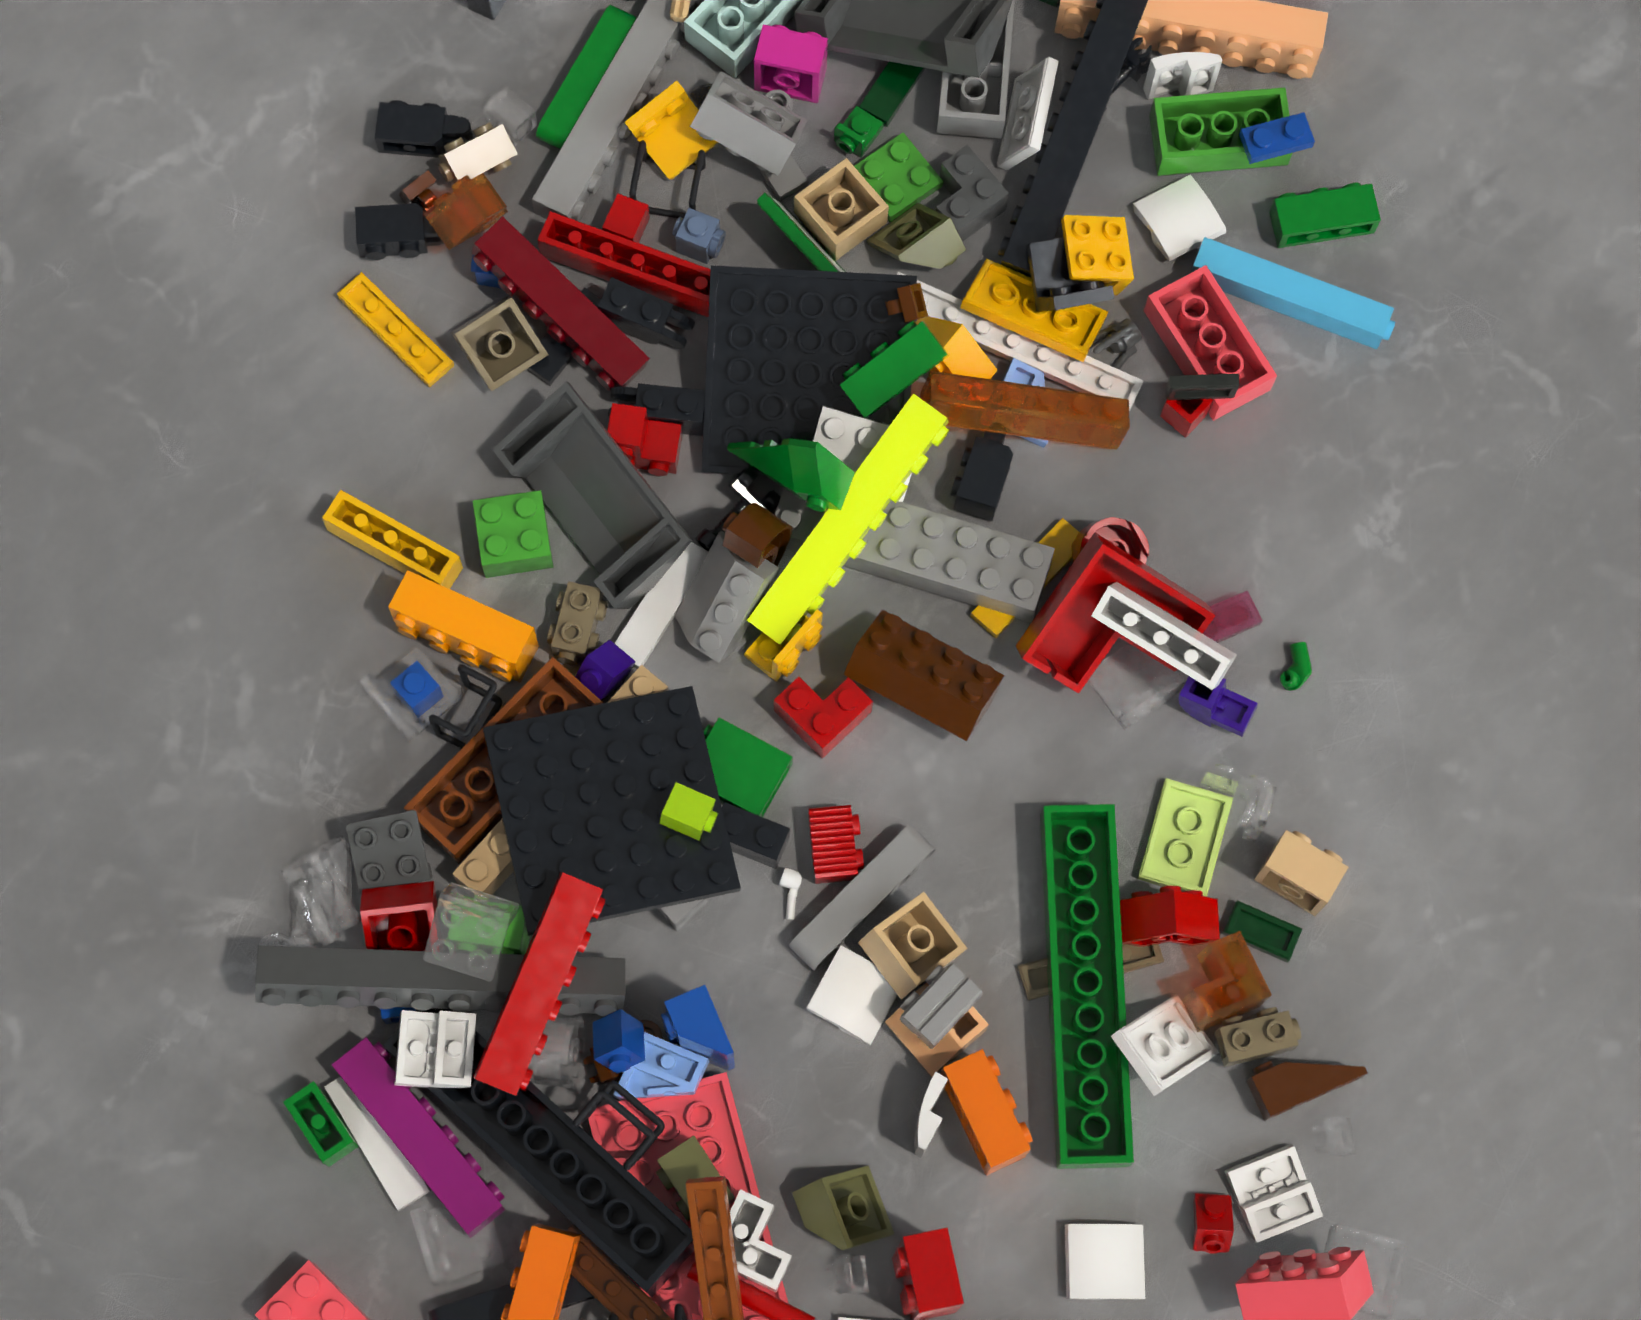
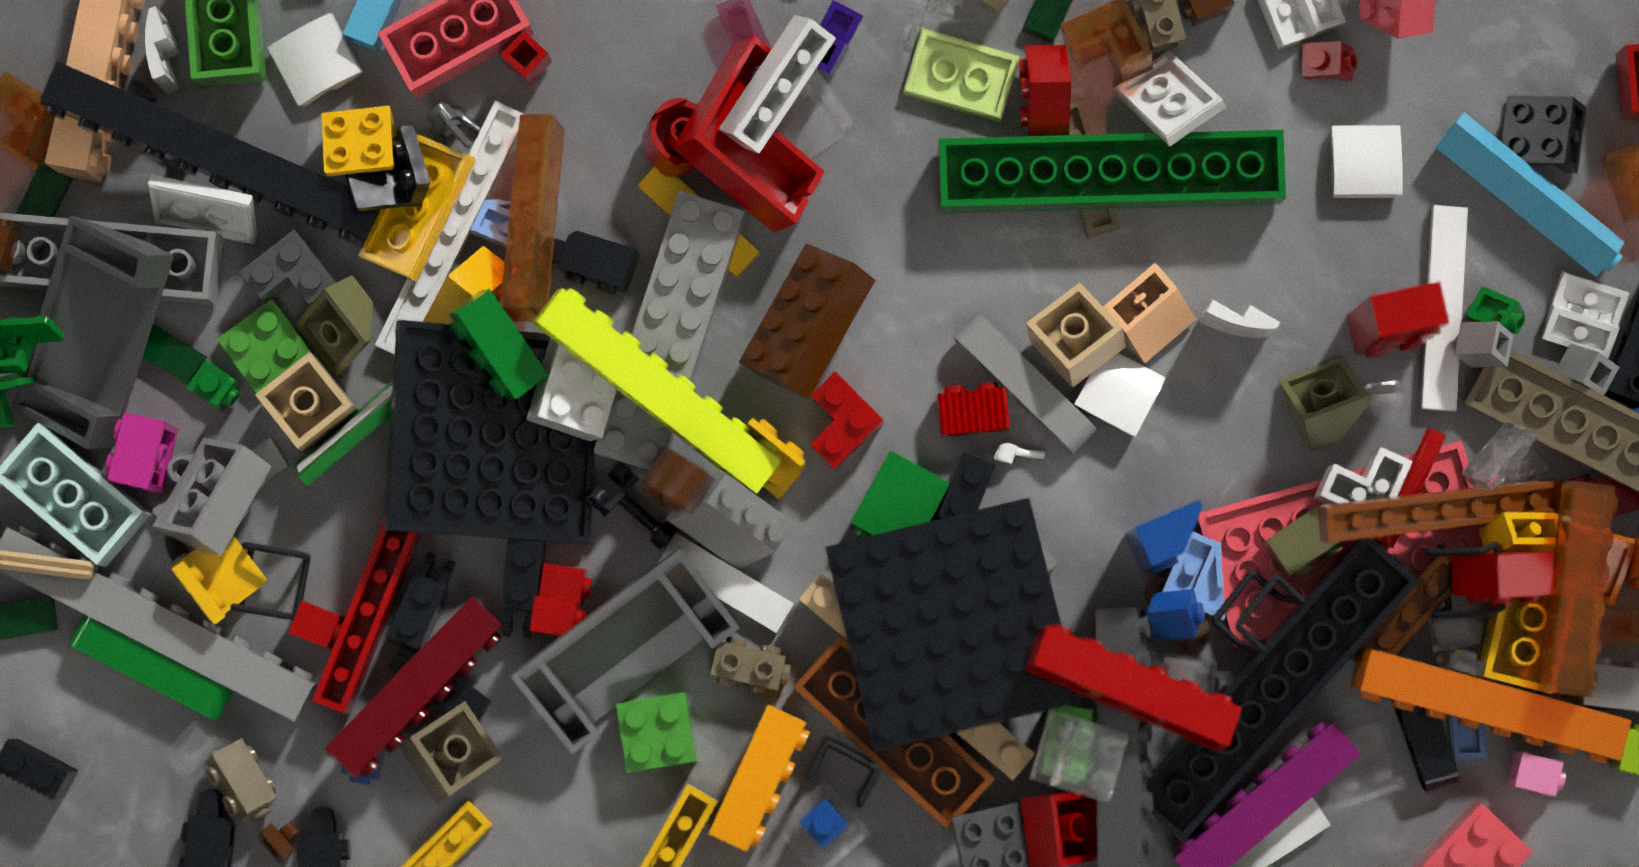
camera: 85 degrees left, 10 degrees up
(435, 1049) = (1189, 789): white slope -> none
(466, 211) = (312, 787): clear orange brick -> none
(605, 669) = (800, 637): dark purple brick -> none
(689, 812) = (961, 545): lime brick -> none
(698, 236) = (333, 548): sand blue brick -> none
(801, 468) = (613, 436): green wedge -> none
(910, 303) = (431, 327): reddish brown tile -> none
(940, 1004) = (1141, 306): light grey brick -> none
(986, 1111) = (1235, 266): orange brick -> none
(1202, 386) = (514, 39): pearl dark grey tile -> none

